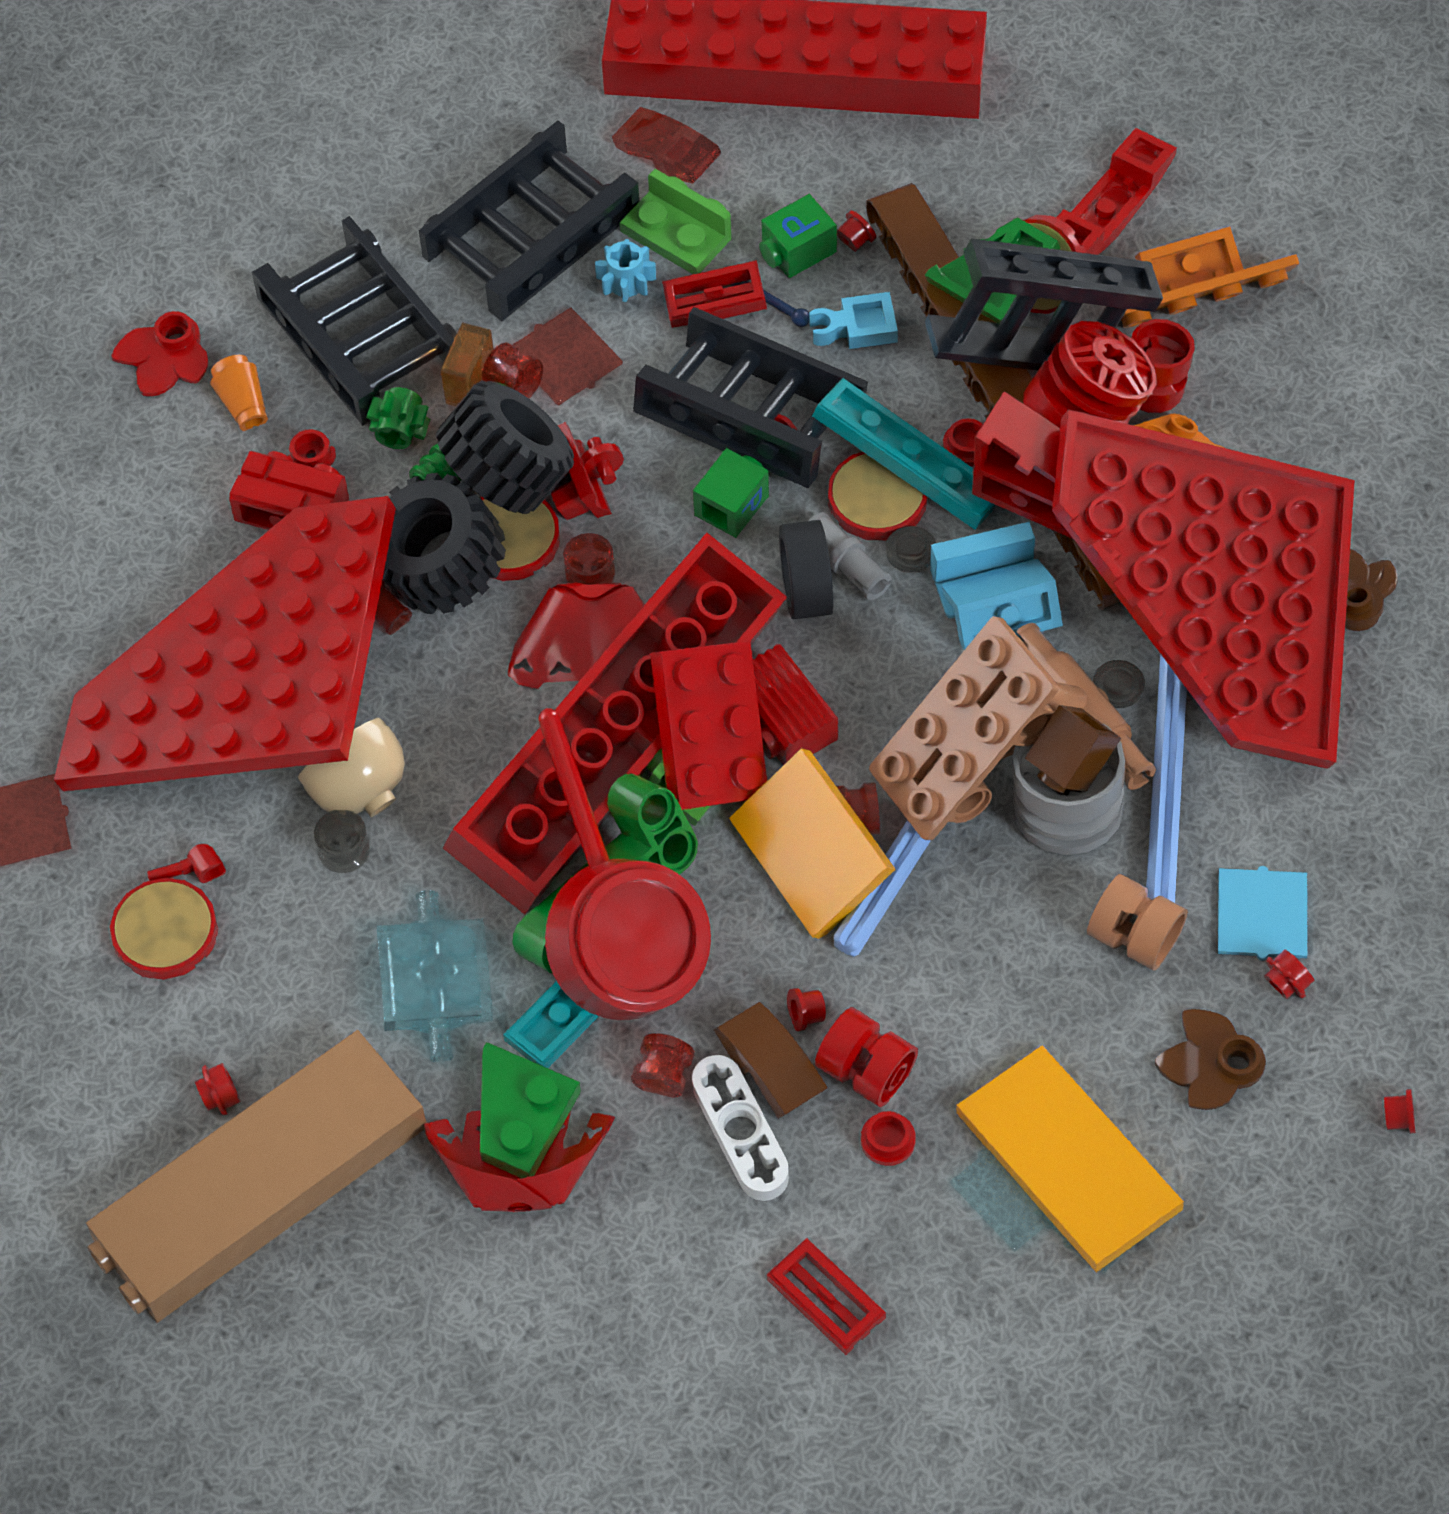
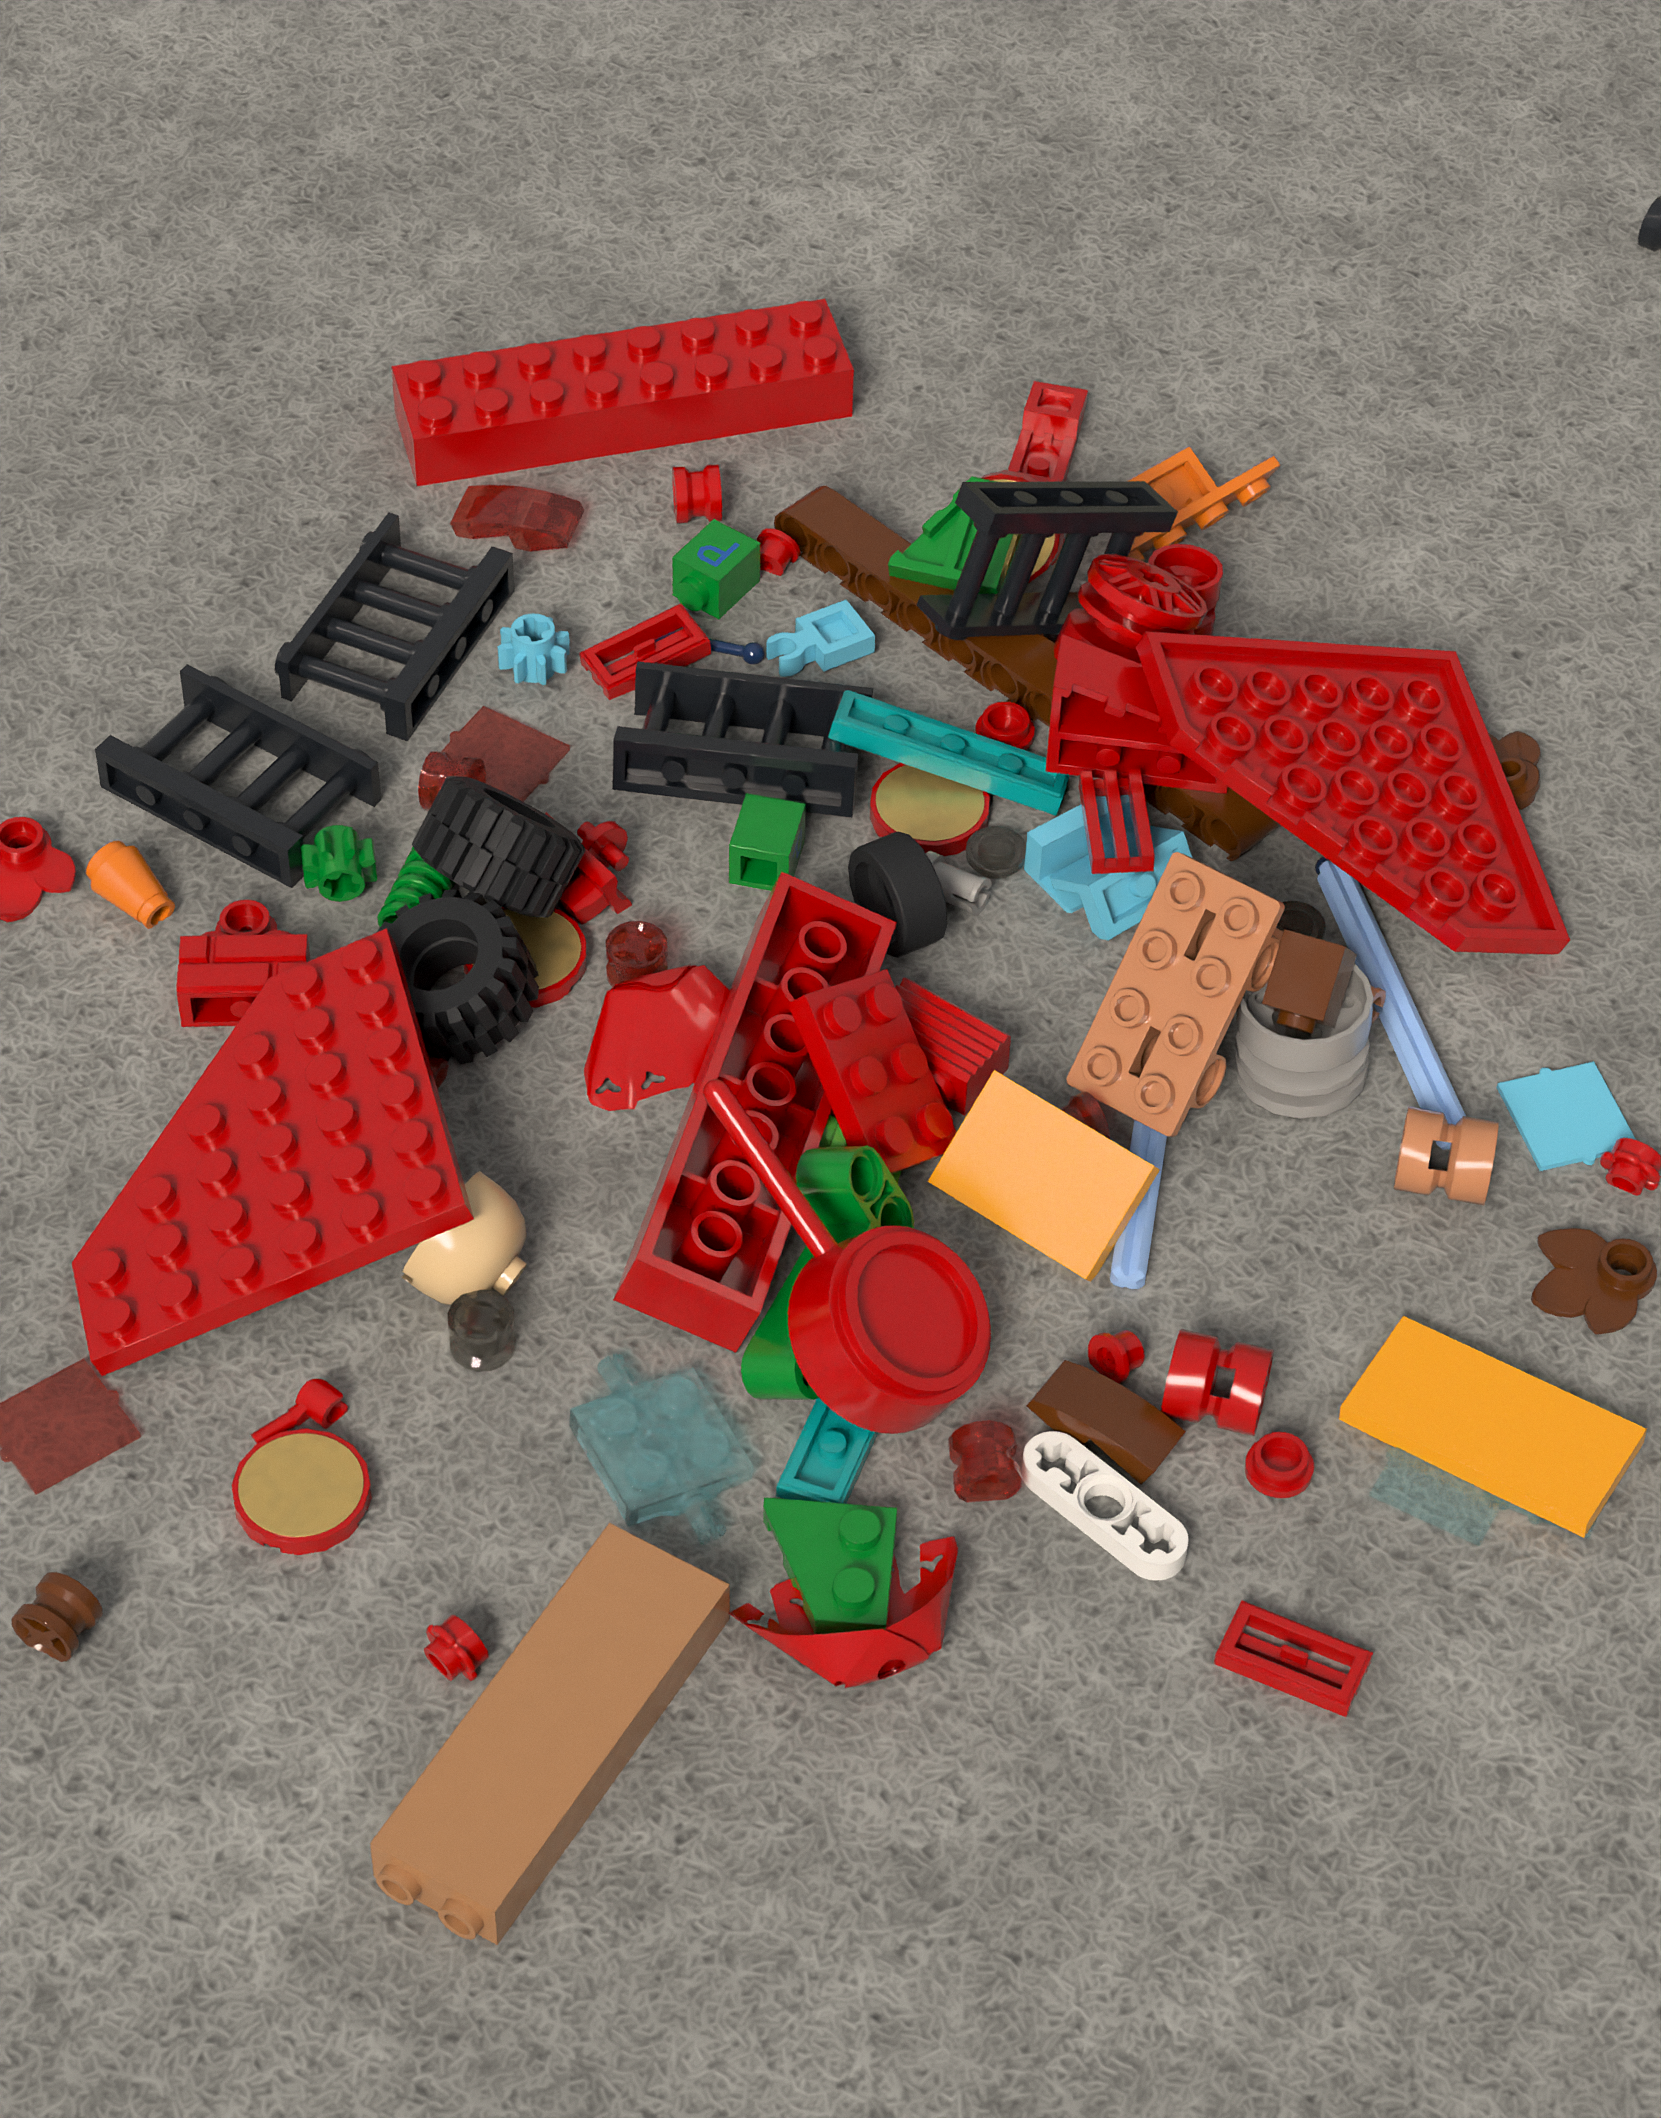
camera: 25 degrees left, 10 degrees down
(465, 362) = (398, 788): clear orange piece -> none
(678, 223) = (572, 584): bright green bracket -> none
(814, 162) = (697, 493): none -> red wheel
(1011, 524) = (1112, 788): none -> red tile

